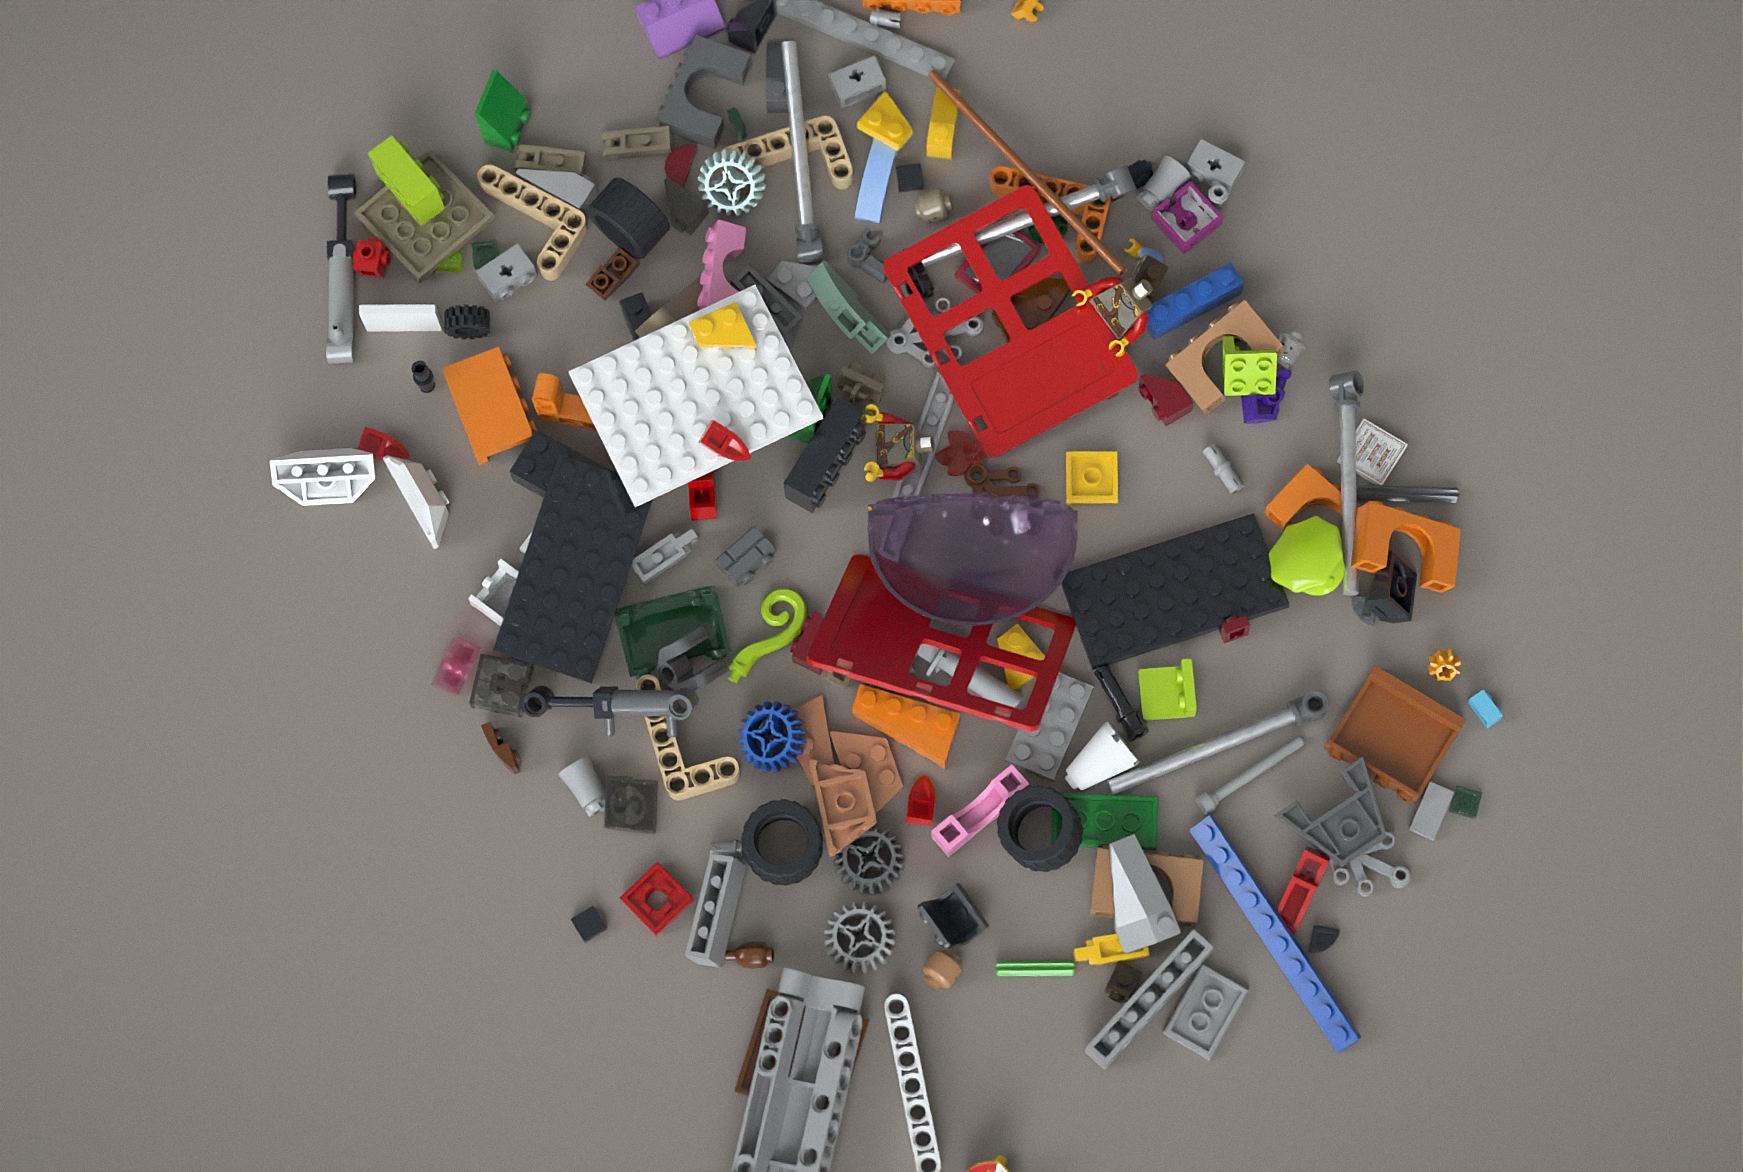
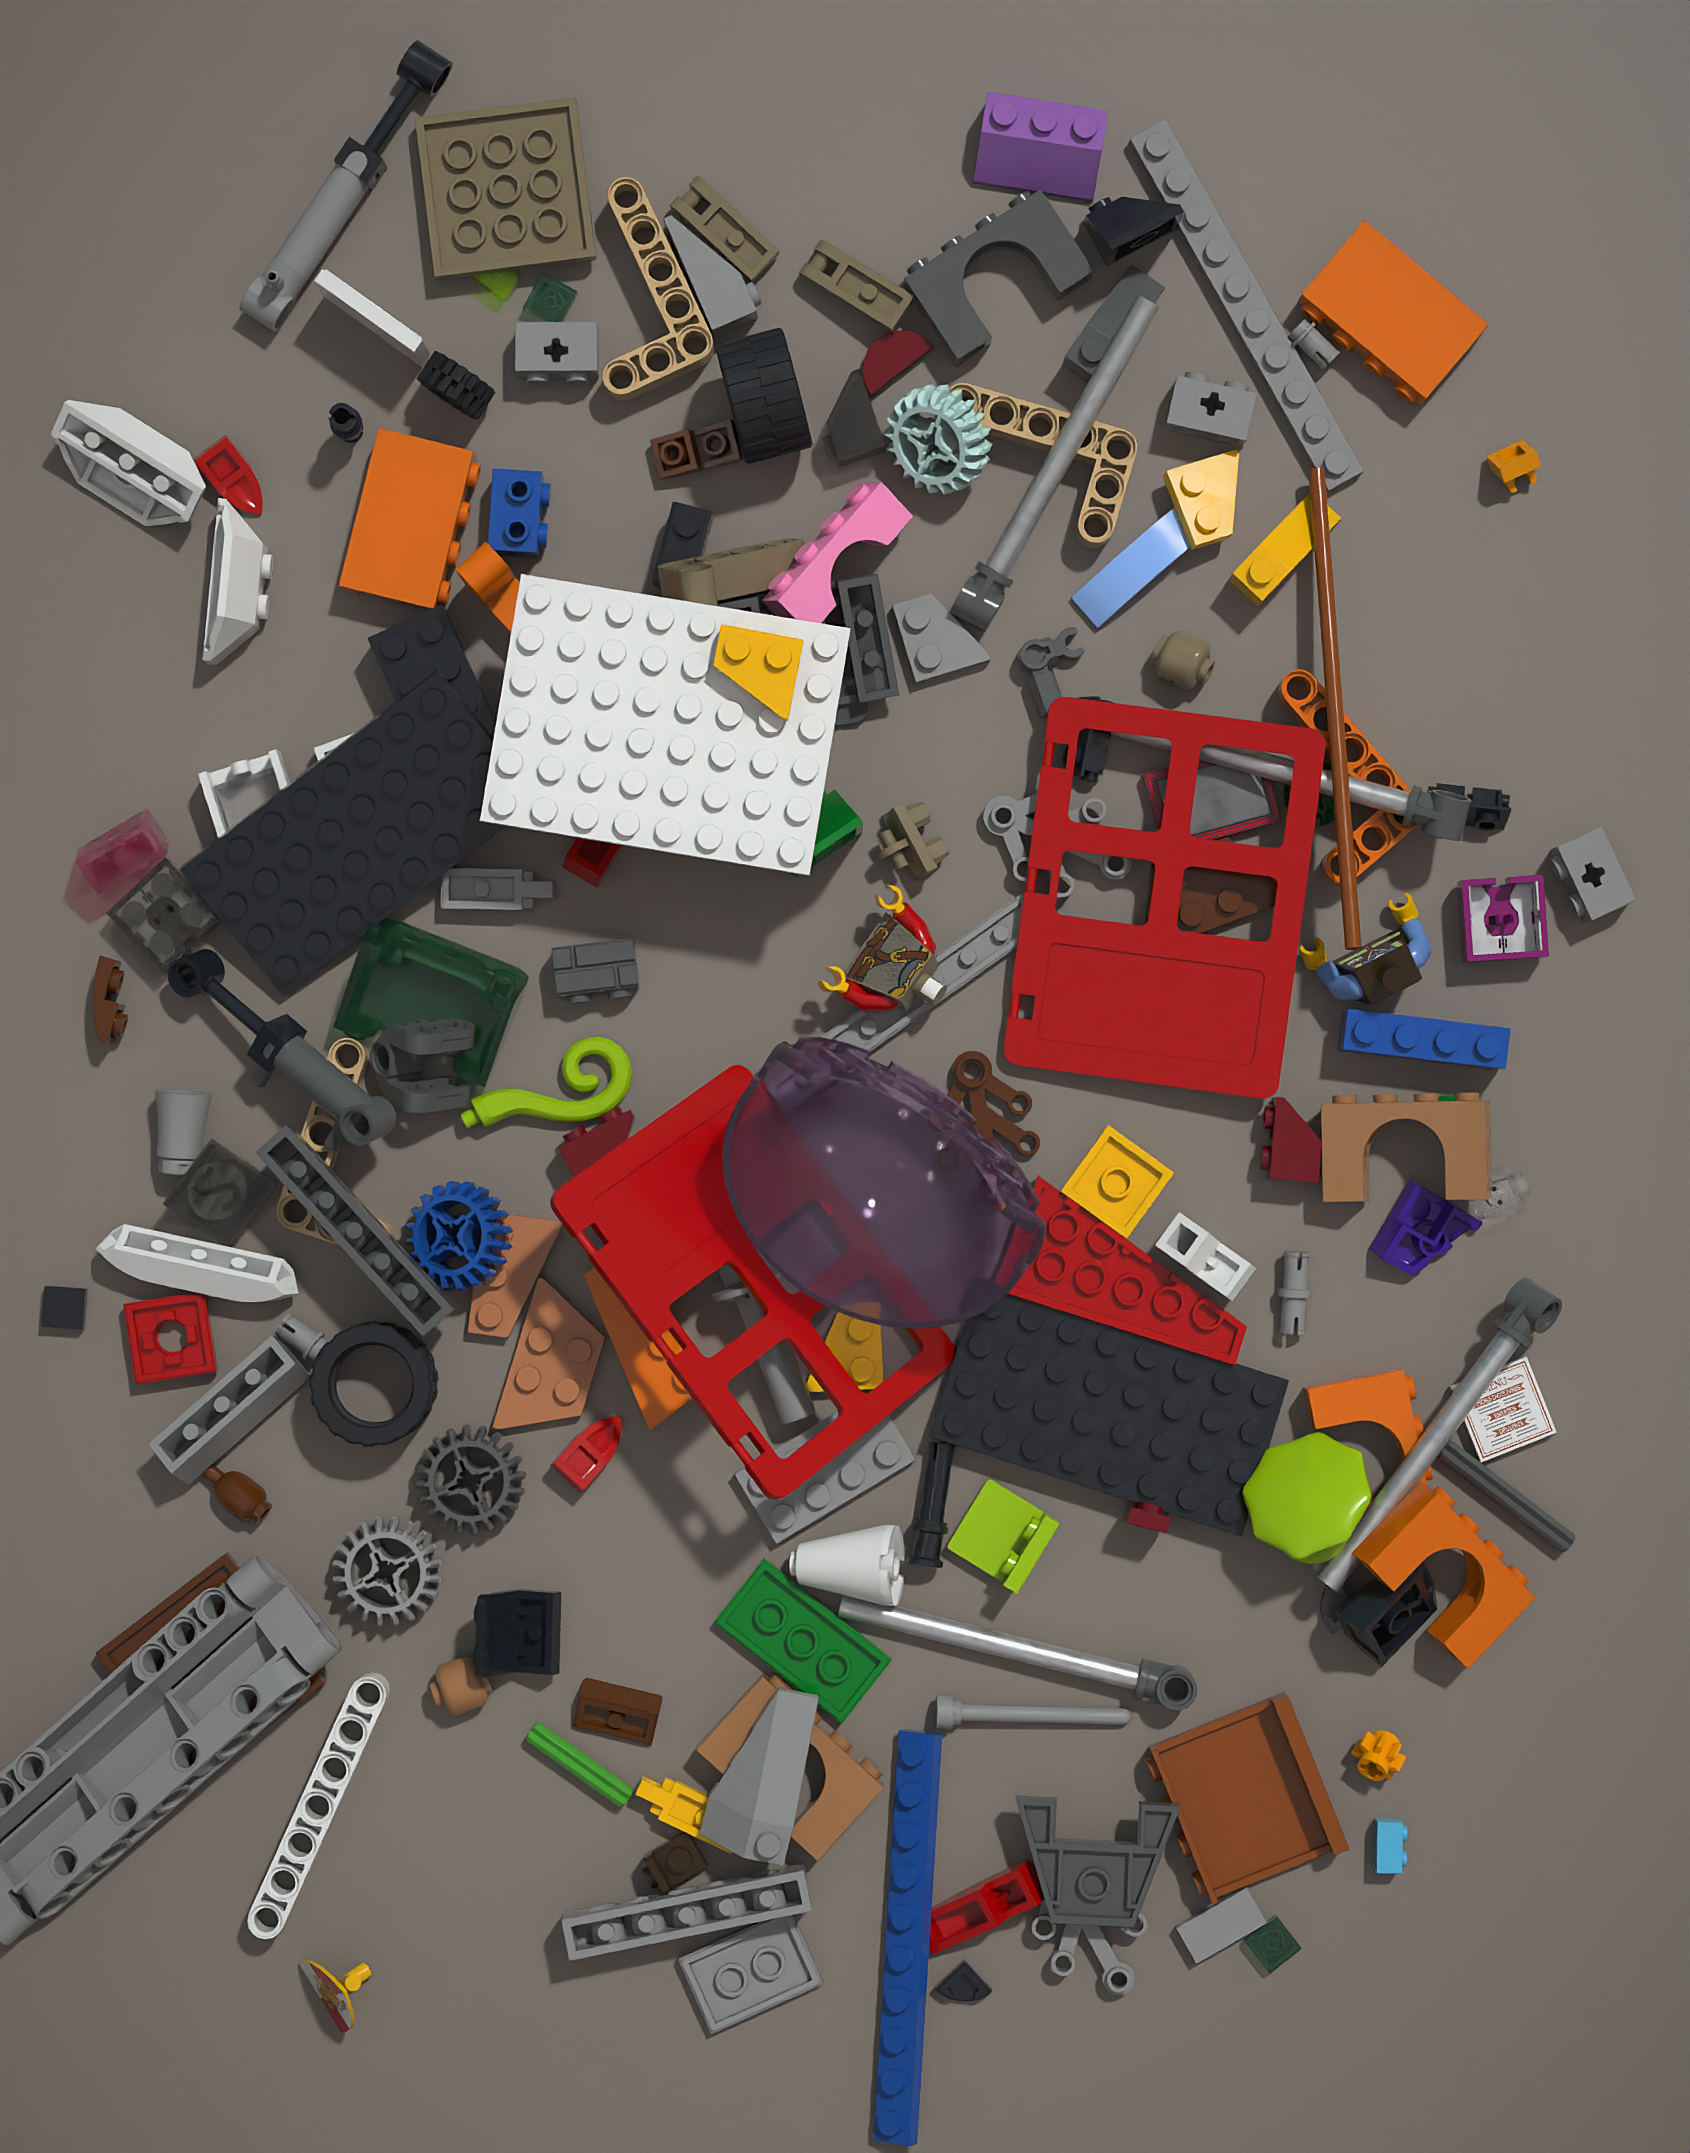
camera: 30 degrees right, 15 degrees up
(371, 258) = (393, 201): red brick -> none
(407, 179) = (509, 130): lime brick -> none
(501, 113) = (702, 120): green slope -> none
(539, 357) = (517, 513): none -> blue brick
(644, 850) = (198, 1265): none -> white brick
(716, 763) = (356, 1230): none -> dark grey brick
(724, 442) = (650, 826): red plate -> none
(736, 123) = (1008, 354): clear green tile -> none
(824, 456) = (790, 910): black brick -> none
(843, 803) = (484, 1389): nougat wing -> none
(845, 310) = (960, 716): sand green slope -> none
(909, 177) = (1182, 595): black tile -> none
(957, 455) = (967, 1023): clear red plate -> none
(969, 821) = (651, 1520): bright pink arch -> none
(1018, 807) = (659, 1596): black tyre -> none
(1035, 927) = (617, 1711): none -> reddish brown slope
(1121, 306) = (1319, 988): torso -> none
(1128, 526) = (1110, 1280): none -> red wing
(1163, 183) = (1506, 850): light grey plant -> none
(1163, 482) = (1205, 1256): none -> white brick
(1218, 195) = (1574, 916): light grey pin -> none
(1247, 370) = (1416, 1194): lime bracket -> none

